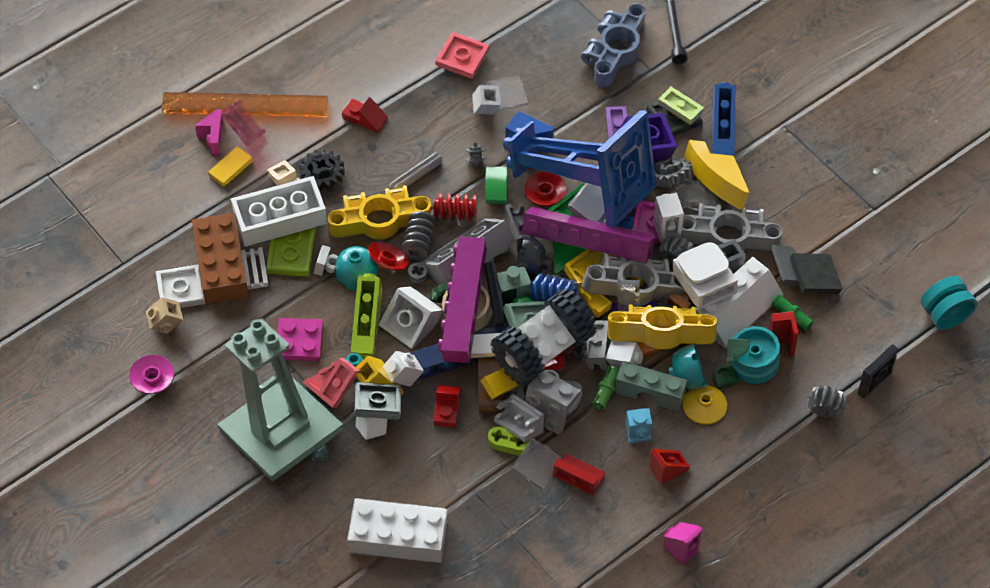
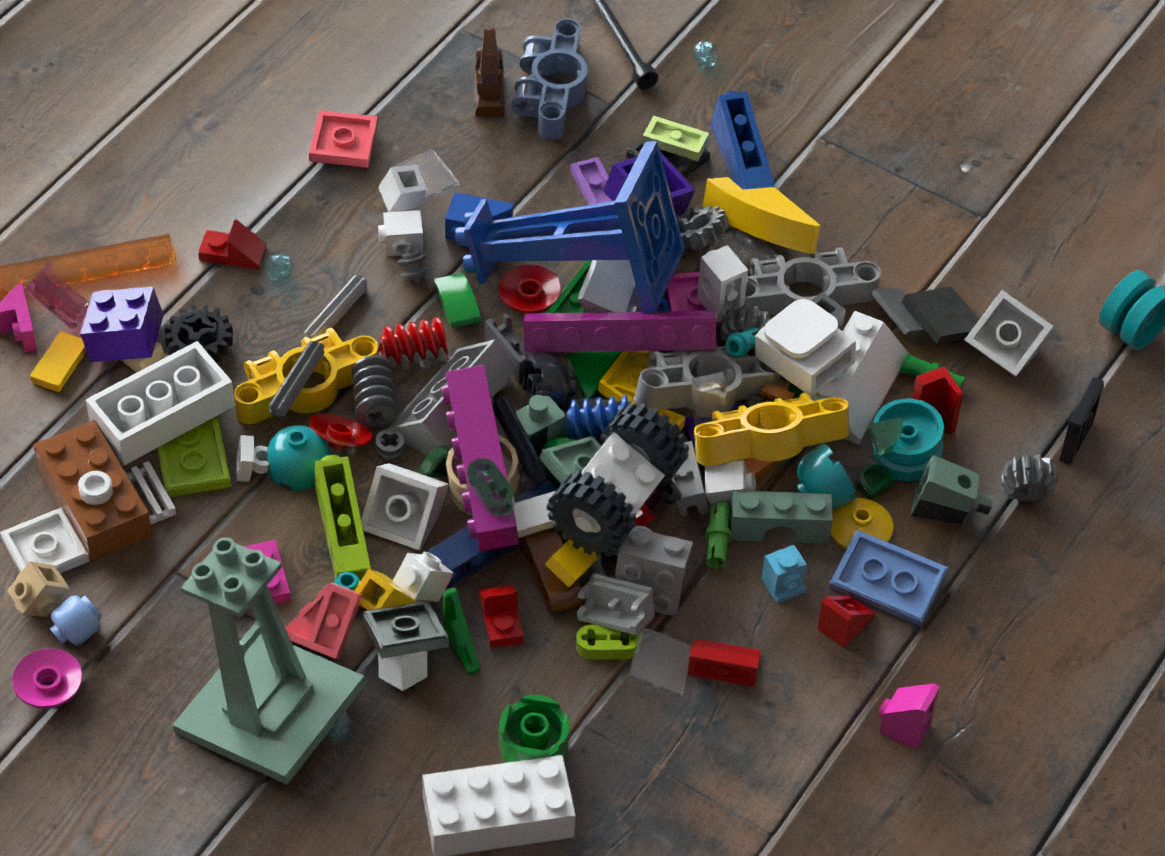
camera: 20 degrees left, 5 degrees down
(181, 341) = (75, 620): none -> light blue head
(217, 258) = (95, 487): none -> white tile
(274, 152) = (122, 324): none -> dark purple brick
(369, 216) = (296, 379): none -> dark grey axle
(389, 134) = (278, 266): none -> clear light blue plate
(414, 410) = (458, 632): none -> green tile
(436, 488) = (533, 730): none -> green brick
(455, 322) = (497, 483): none -> beam
(476, 130) = (401, 231): none -> white brick
(572, 33) = (489, 77): none -> reddish brown piece
(663, 262) = (740, 343): none -> teal pin
(708, 445) = (888, 577): none -> medium blue tile
(726, 48) = (705, 53): none -> clear light blue plate
(768, 399) = (948, 493): none -> sand green torso
(853, 298) = (1009, 333): none -> white slope

